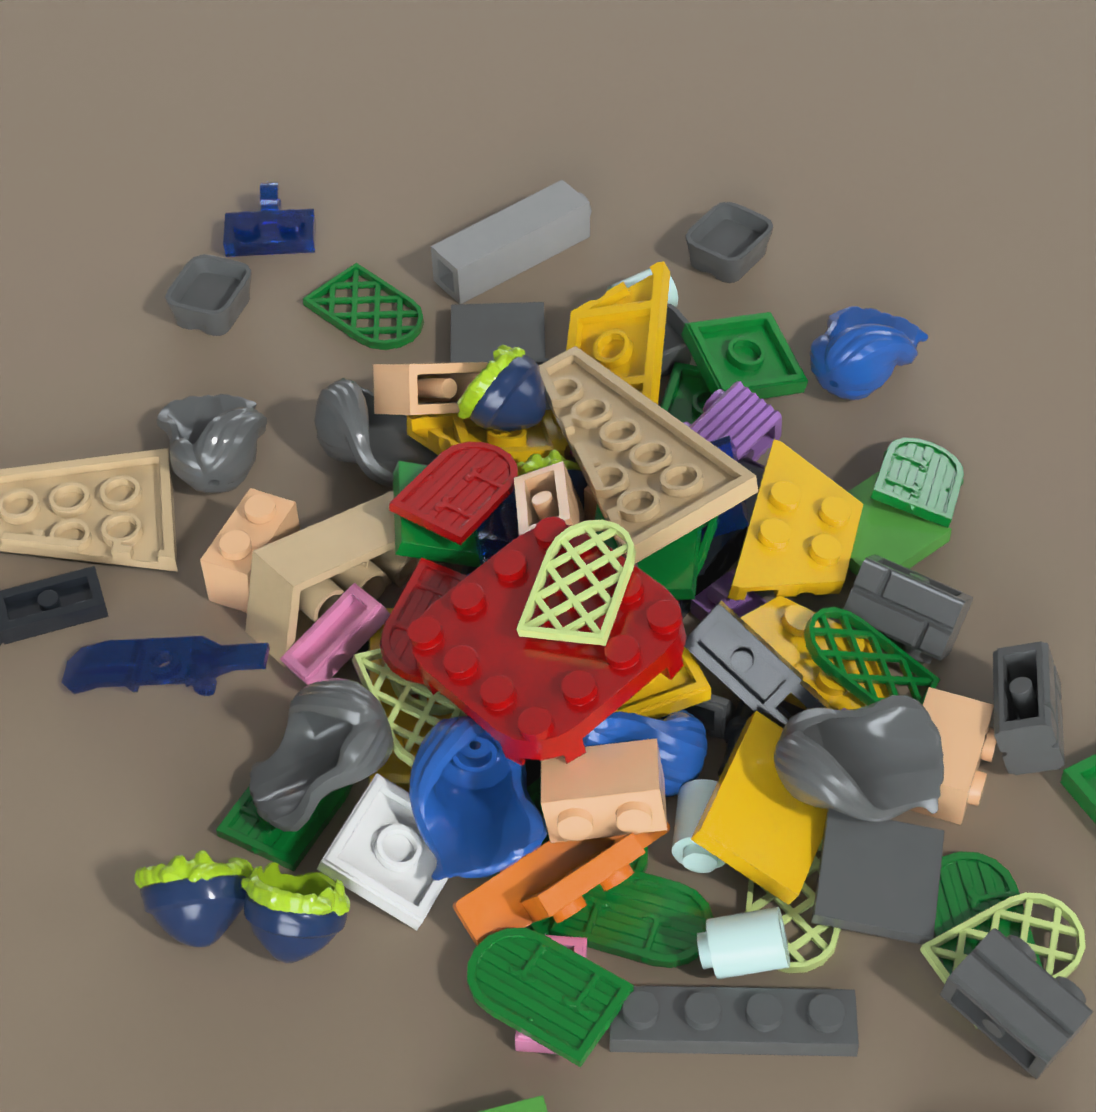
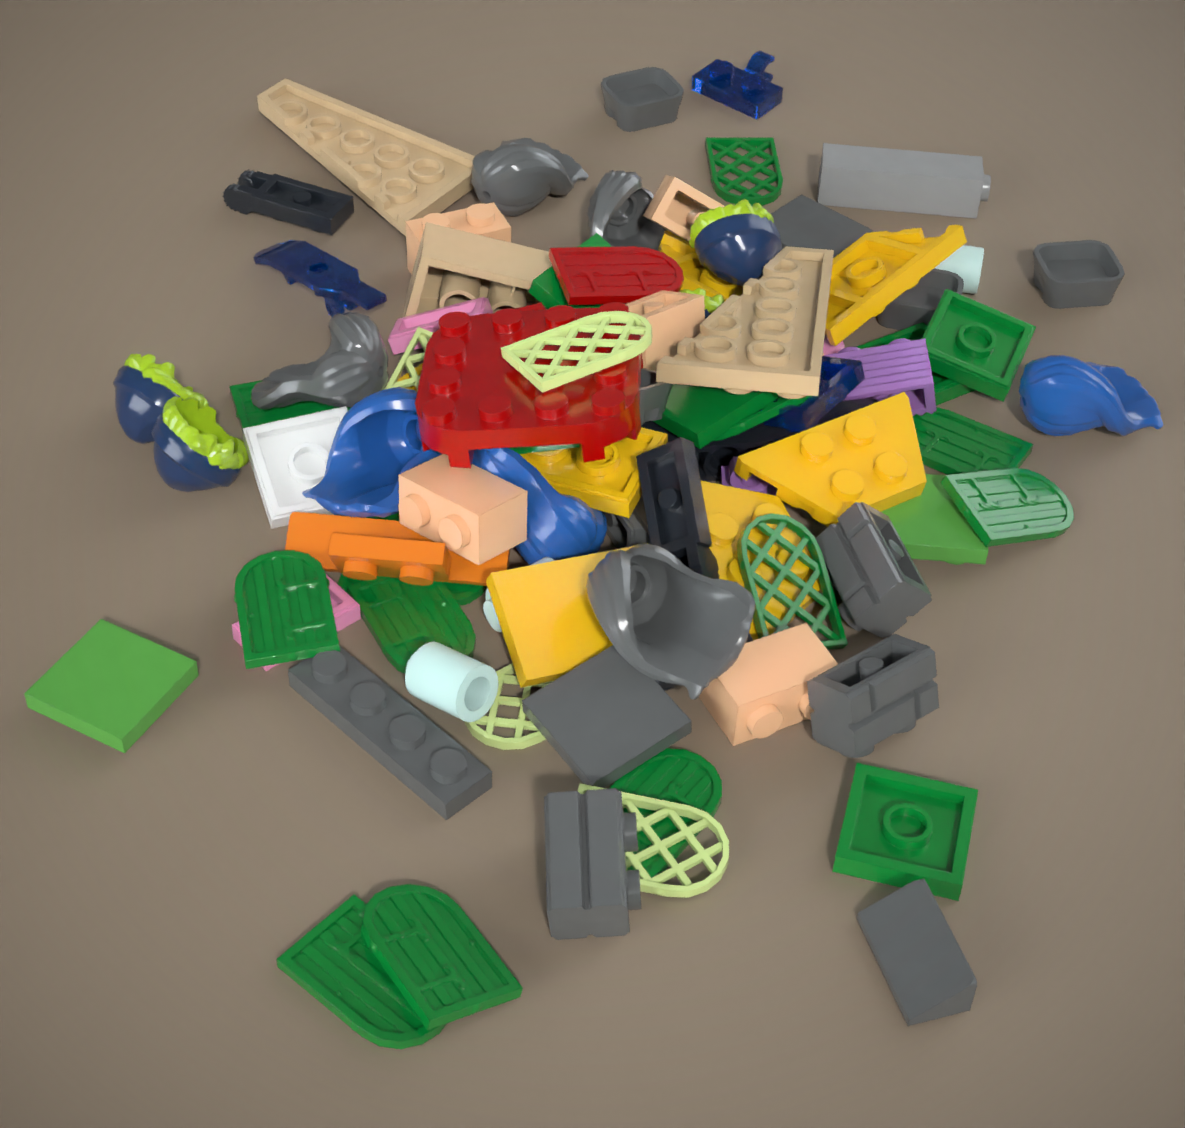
camera: 40 degrees right, 5 degrees down
(835, 446) = (964, 445): none -> green window

